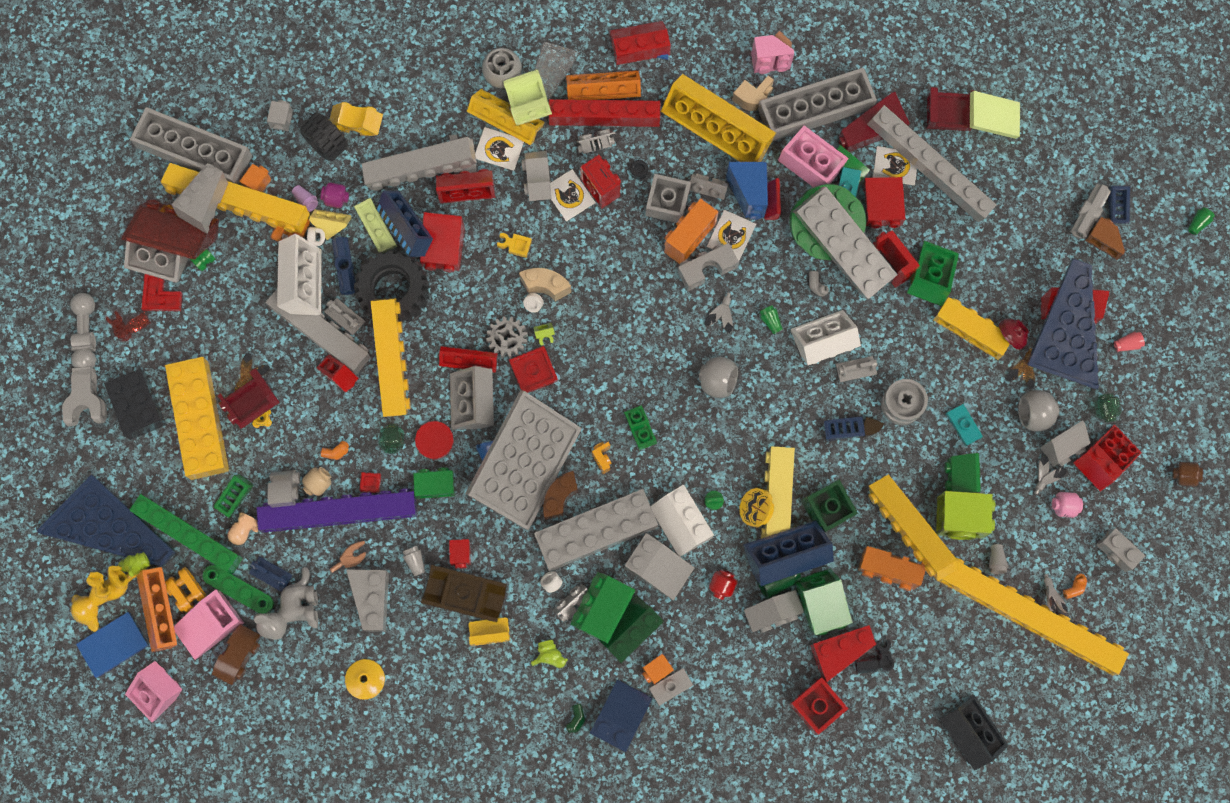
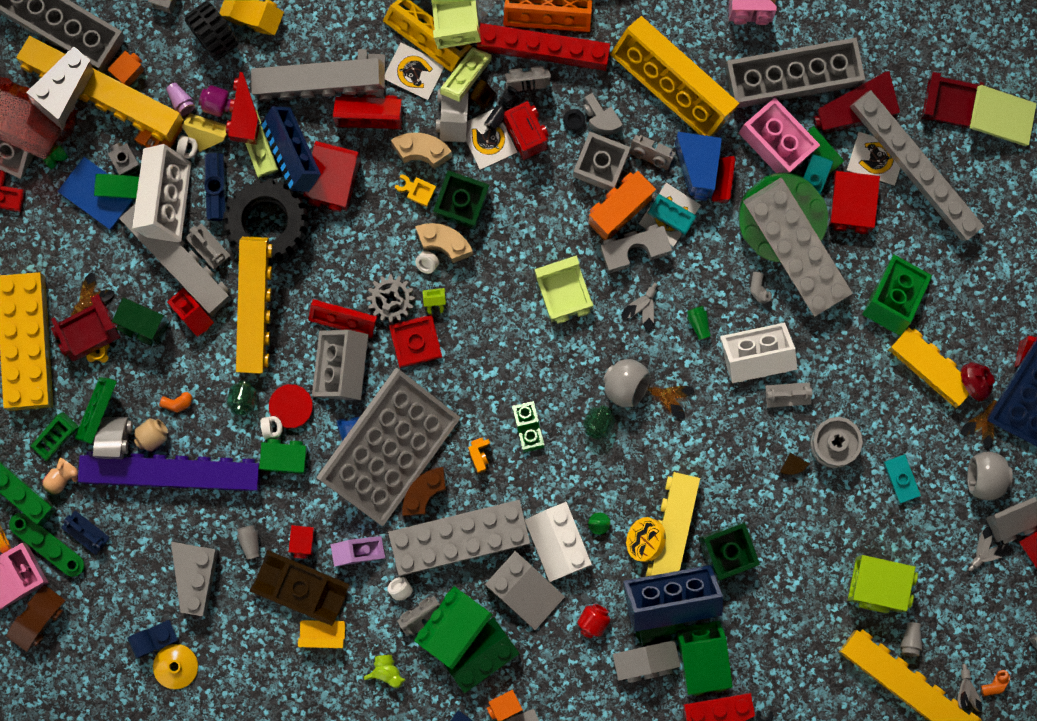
camera: 10 degrees right, 5 degrees up
(244, 286) = (80, 191): none -> blue tile
(259, 276) = (116, 186): none -> green slope
(265, 260) = (129, 165): none -> flat silver brick
(265, 466) = (95, 410): none -> green tile
(275, 624) = (82, 591): light grey animal -> none
(295, 386) = (140, 321): none -> dark green brick
(340, 659) = (152, 639): none -> dark blue plate
(347, 558) = (174, 527): nougat hand -> none
(361, 206) = (244, 120): none -> red slope
(370, 482) = (211, 444): red tile -> none
(416, 460) = (267, 428): none -> white tile
(509, 554) = (357, 551): none -> lavender slope
(515, 209) = (421, 147): none -> tan brick
(543, 143) = (465, 74): none -> yellowish green tile
(554, 246) = (461, 200): none -> dark green brick
(559, 159) = (482, 95): none -> dark brown tile
(574, 174) = (505, 103): none -> black bar
(652, 308) = (563, 290): none -> yellowish green panel
(662, 165) = (603, 121): none -> light grey brick
(700, 414) = (599, 422): none -> clear green head
(733, 234) = (671, 214): none -> teal plate
(749, 97) = (717, 52): tan brick -> none
(755, 386) = (667, 397): none -> clear orange piece
(835, 422) = (762, 454): dark blue slope -> none
(891, 568) = (788, 632): orange wedge -> none
(897, 256) = (857, 270): red panel -> none
(913, 528) = (818, 590): yellow brick -> none
(963, 473) = (888, 537): green slope -> none
(1067, 504) = (1003, 589): bright pink head -> none

